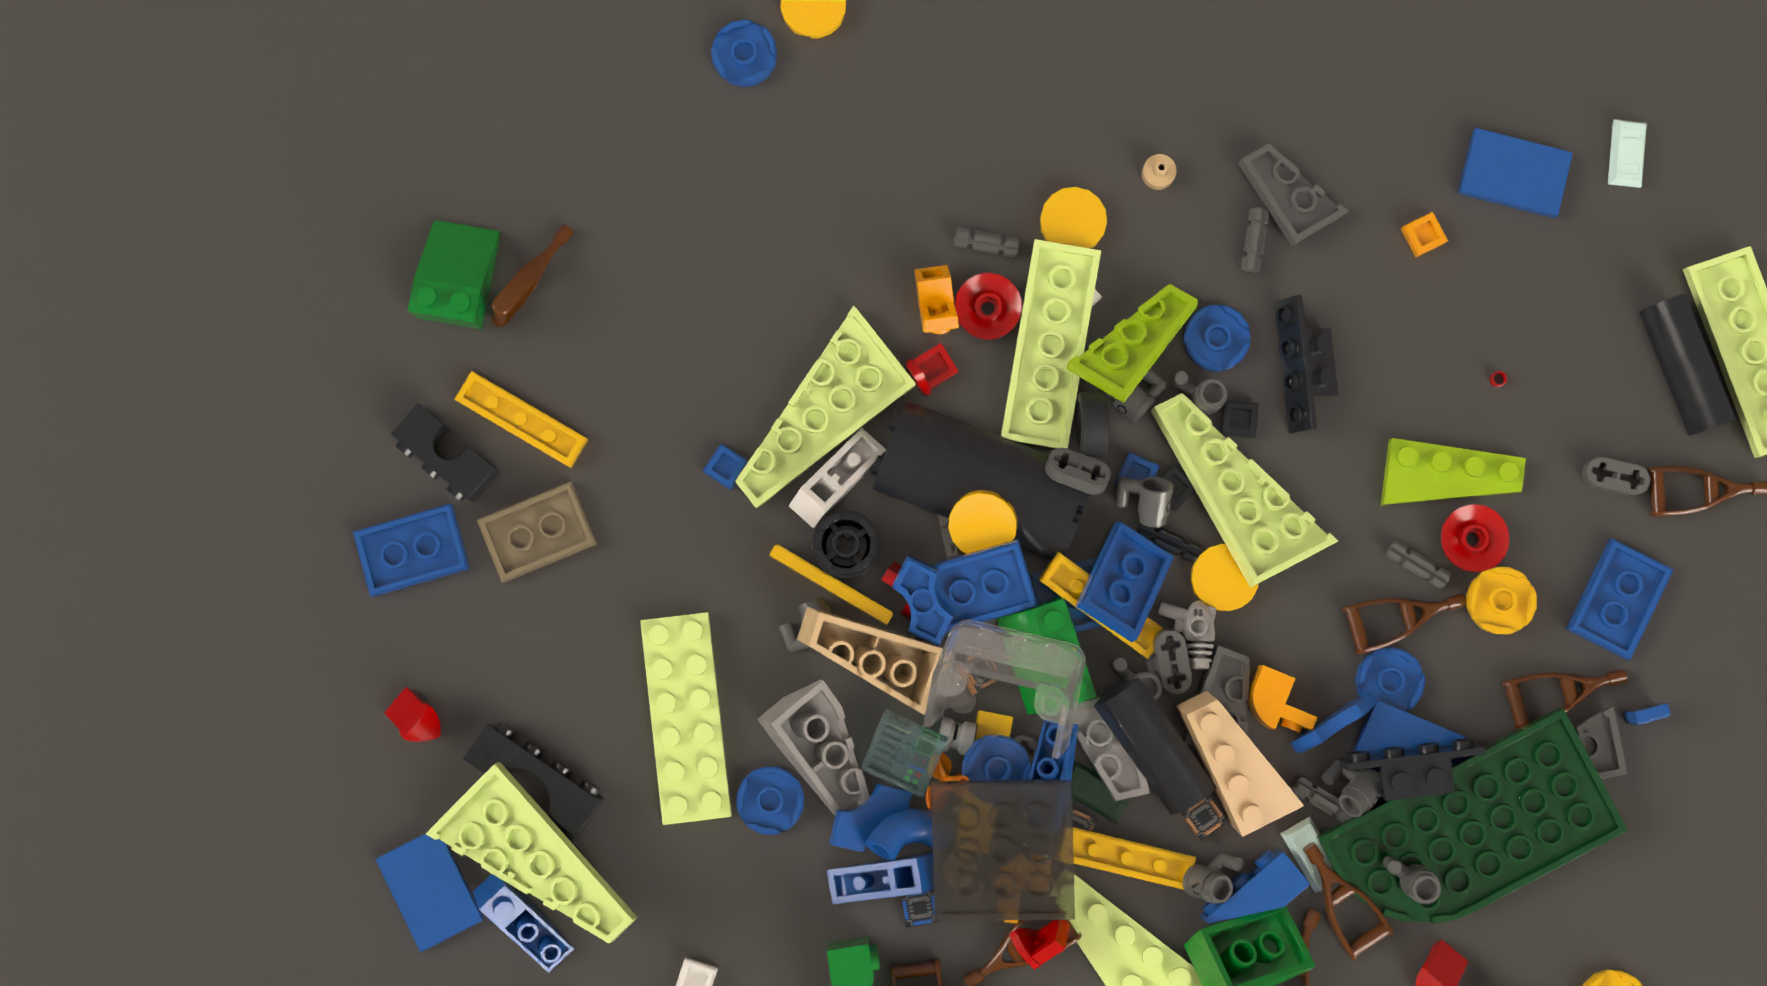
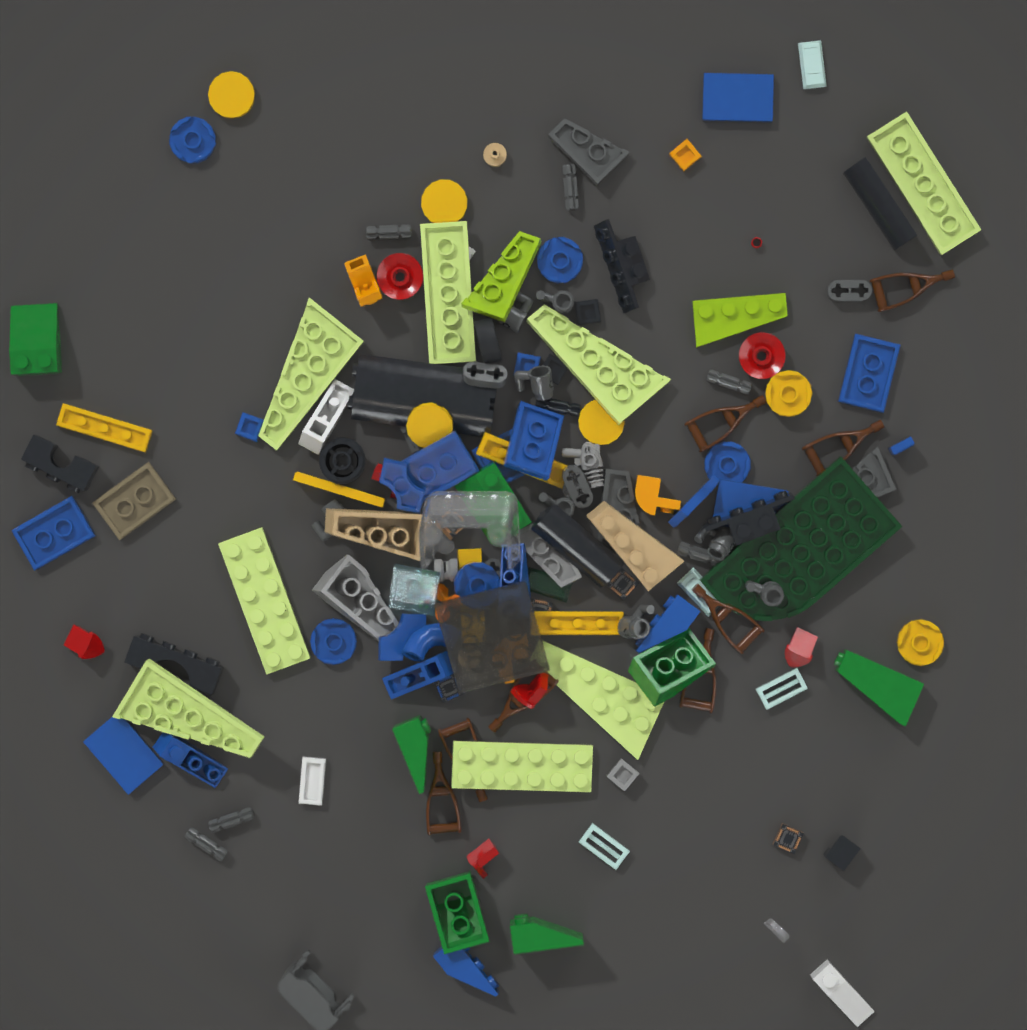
camera: 10 degrees left, 5 degrees up
(525, 281) = (84, 333): reddish brown piece -> none
(931, 369) = (371, 327): red tile -> none

